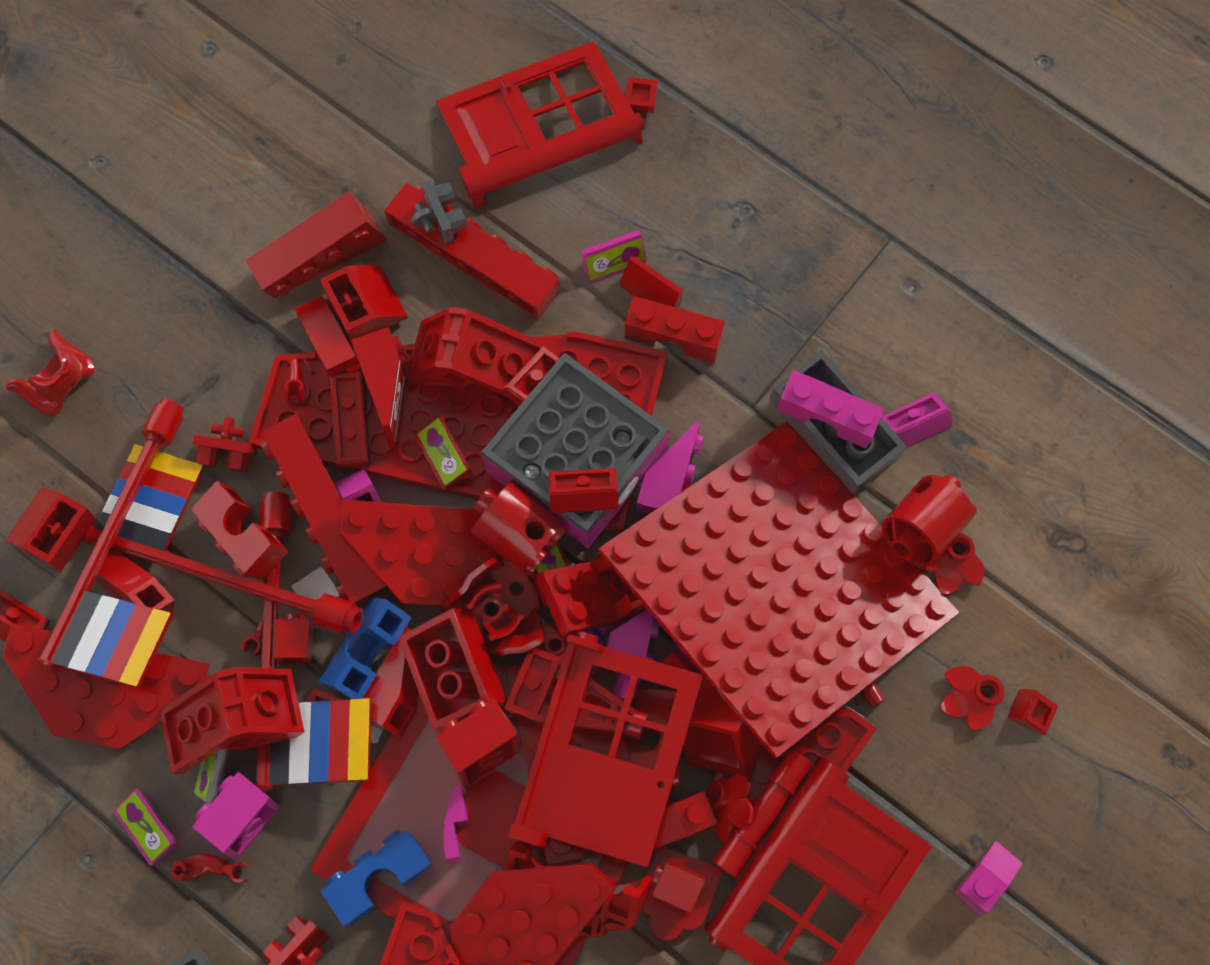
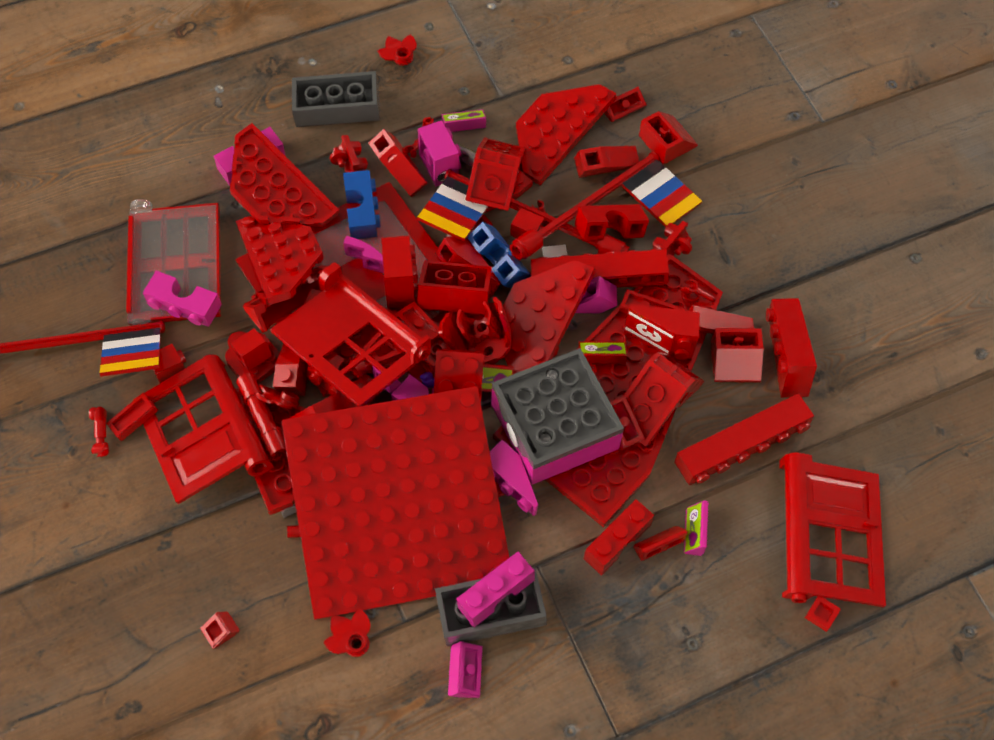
camera: 115 degrees right, 10 degrees down
(56, 380) = (768, 179): red hair -> none
(104, 633) = (584, 124): flag -> none
(275, 870) = (398, 162): none -> red slope
(436, 198) = (778, 415): dark grey hips -> none
(508, 521) = (521, 351): red cylinder -> none
(583, 490) = (520, 391): red slope -> none
(928, 520) = (382, 619): red cylinder -> none
(967, 699) = (254, 591): red plate -> none
(988, 879) = (136, 533): dark pink slope -> none

